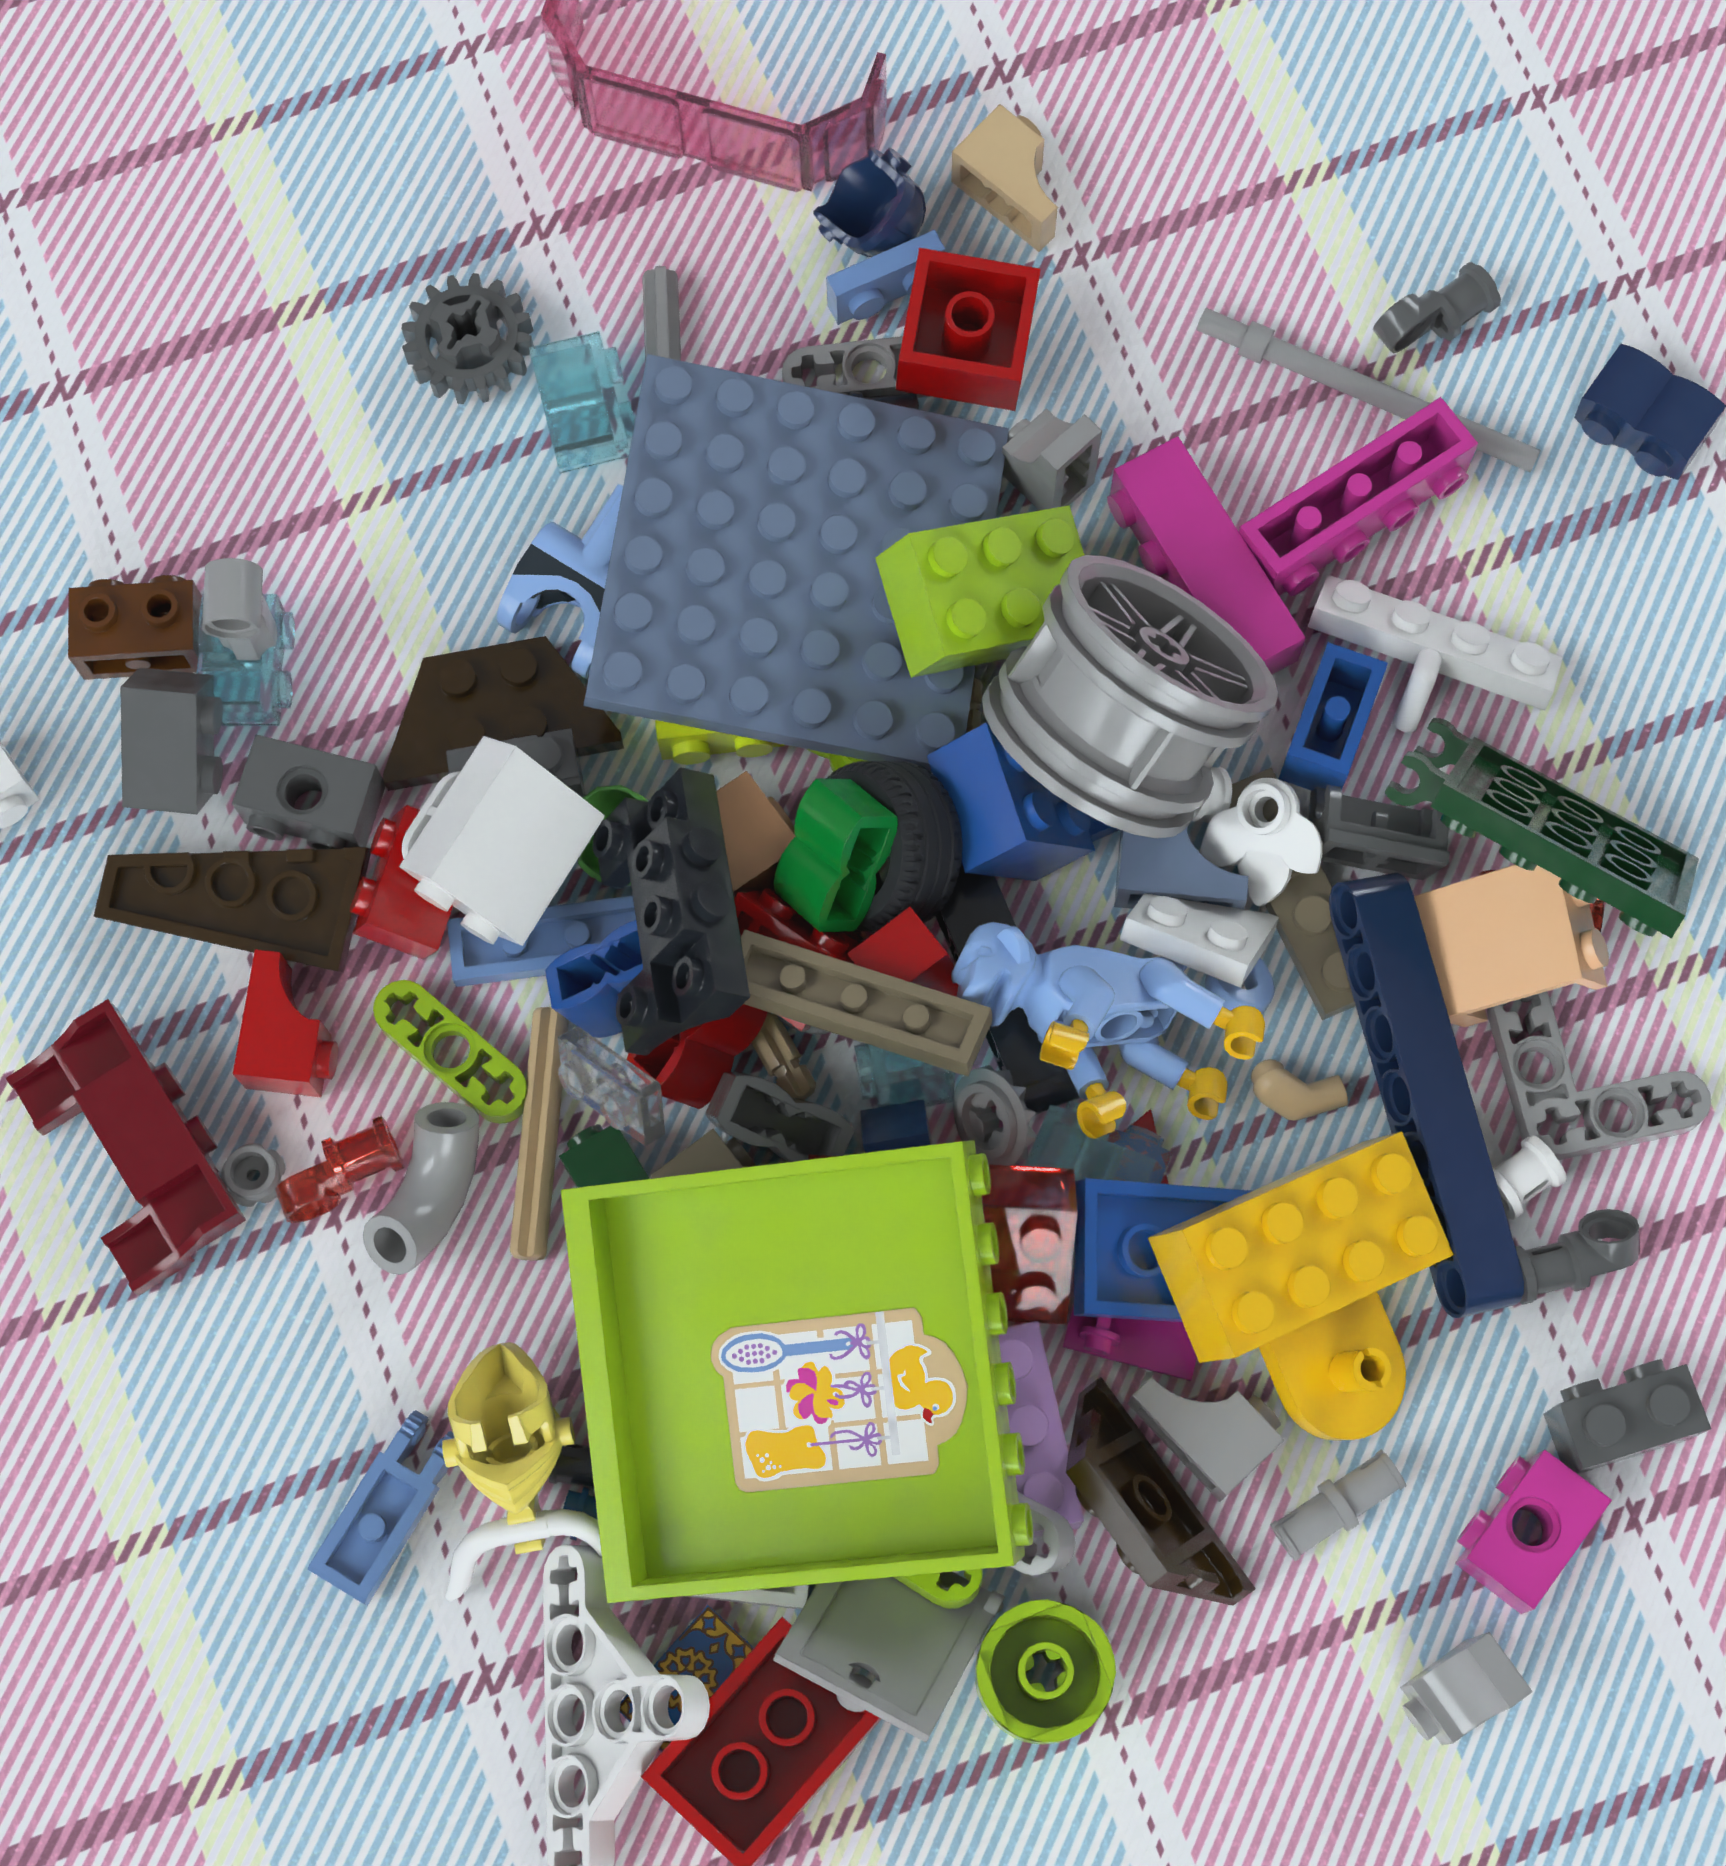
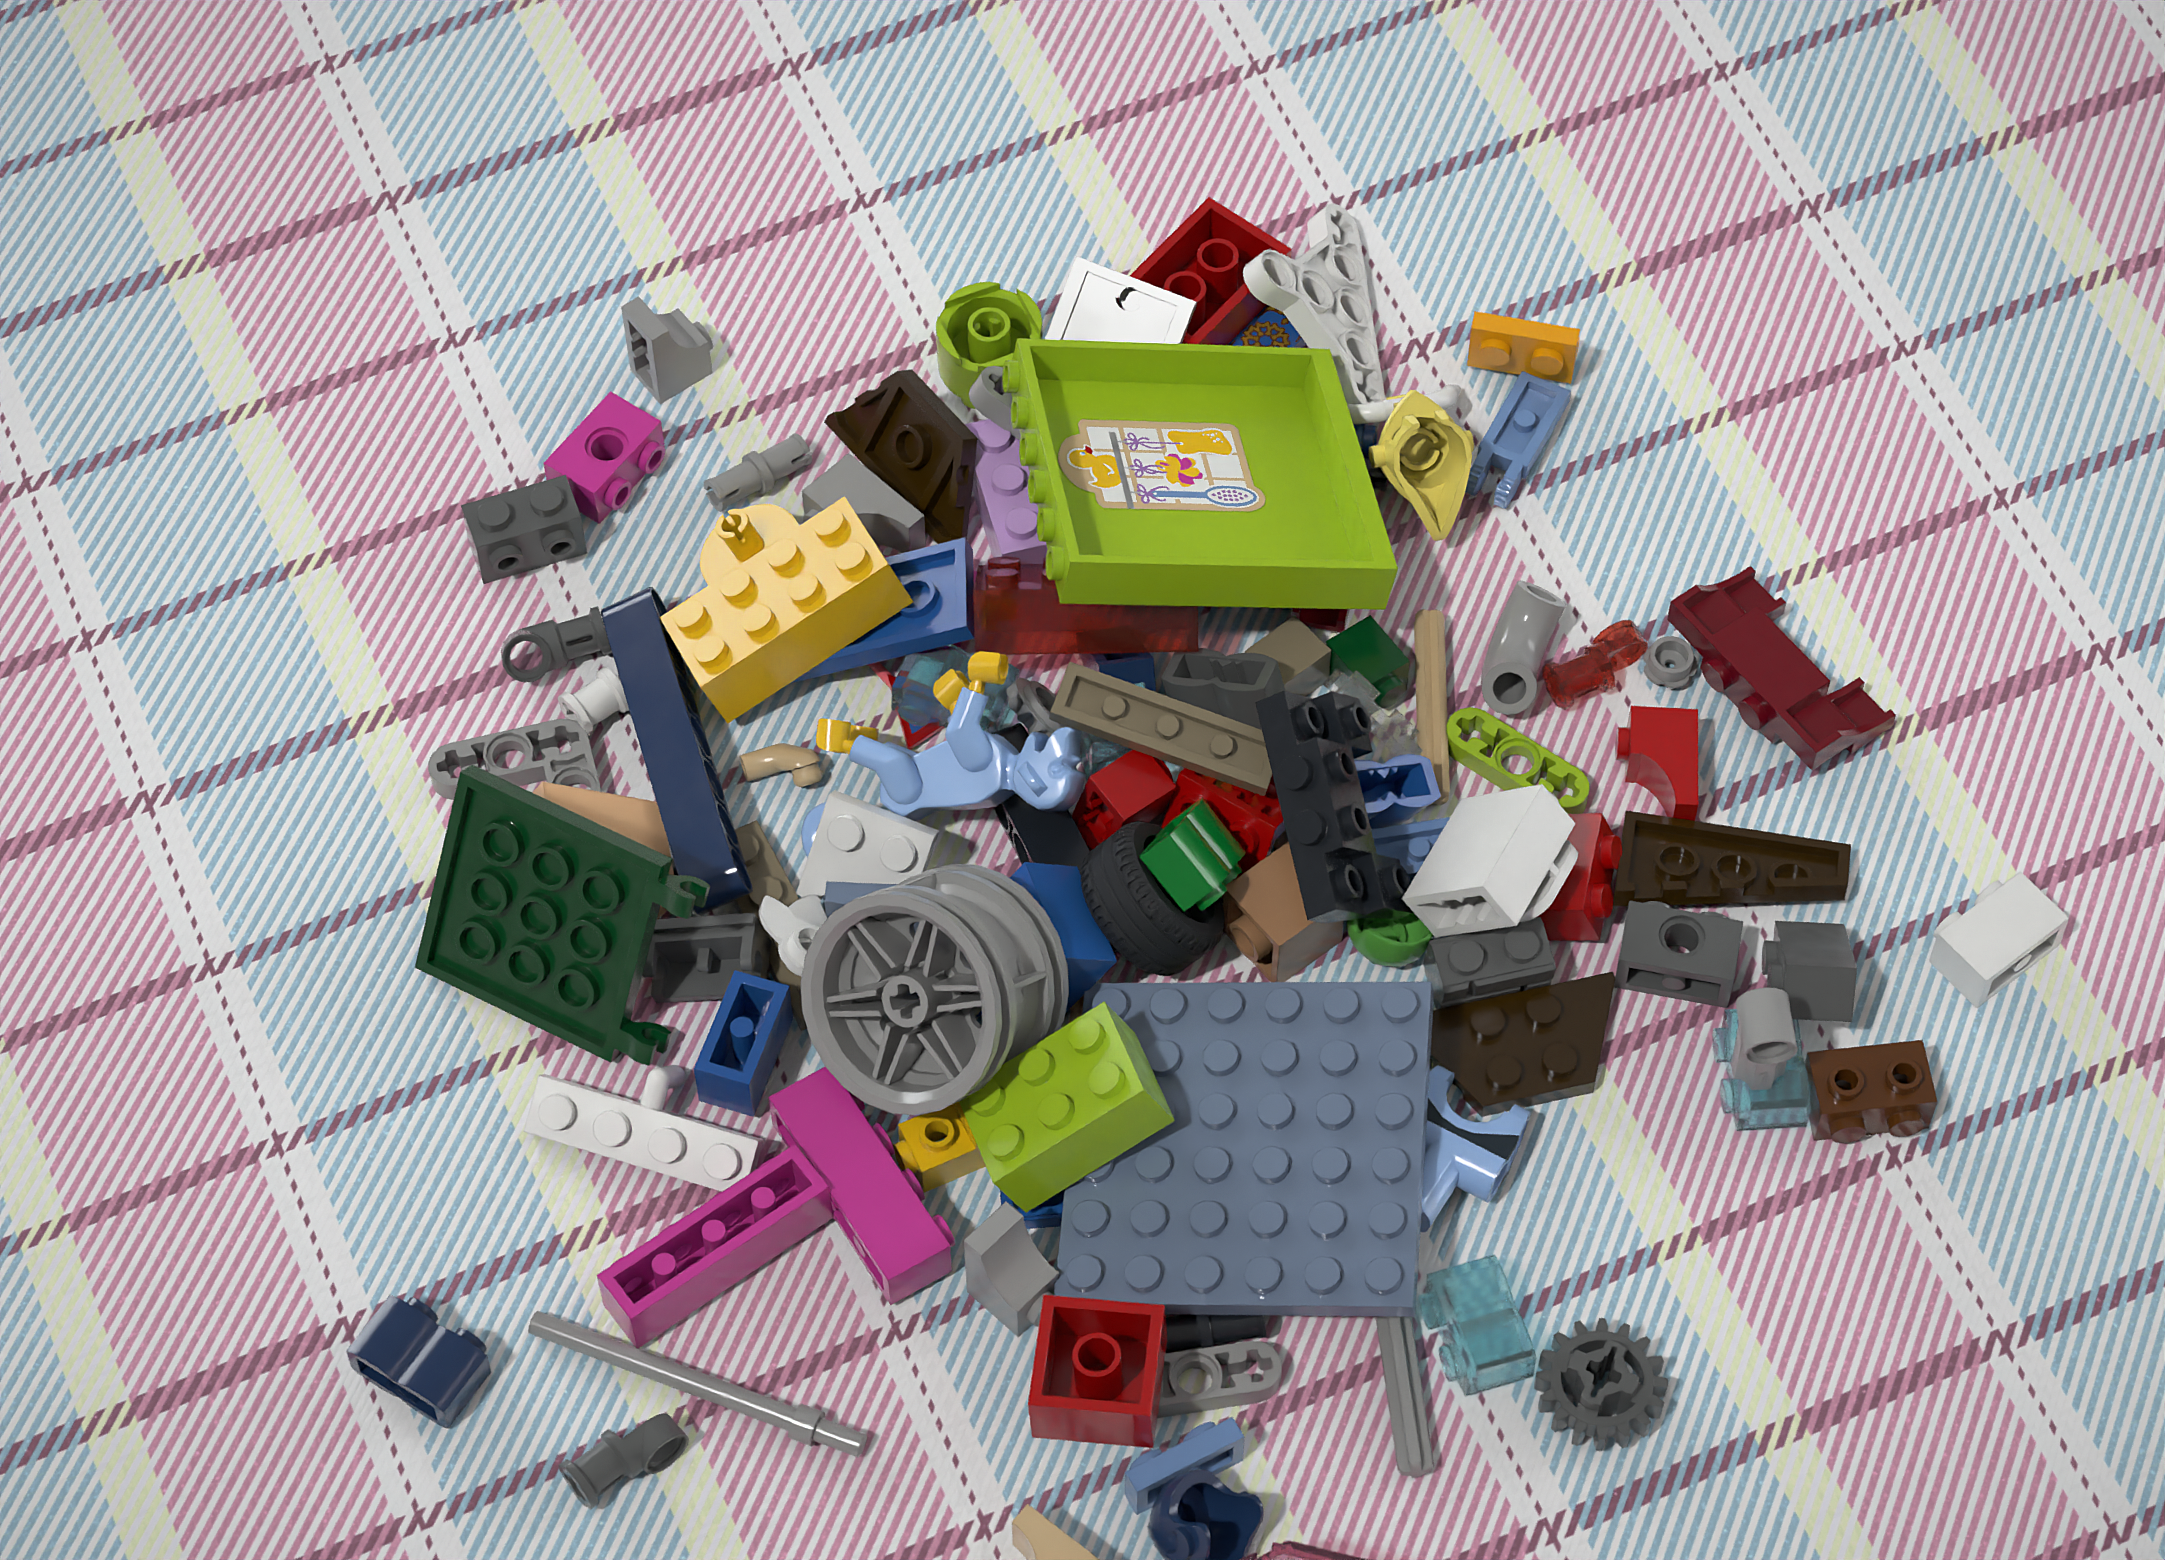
camera: 175 degrees right, 15 degrees down
(354, 1648) = (1523, 345): none -> light orange bracket

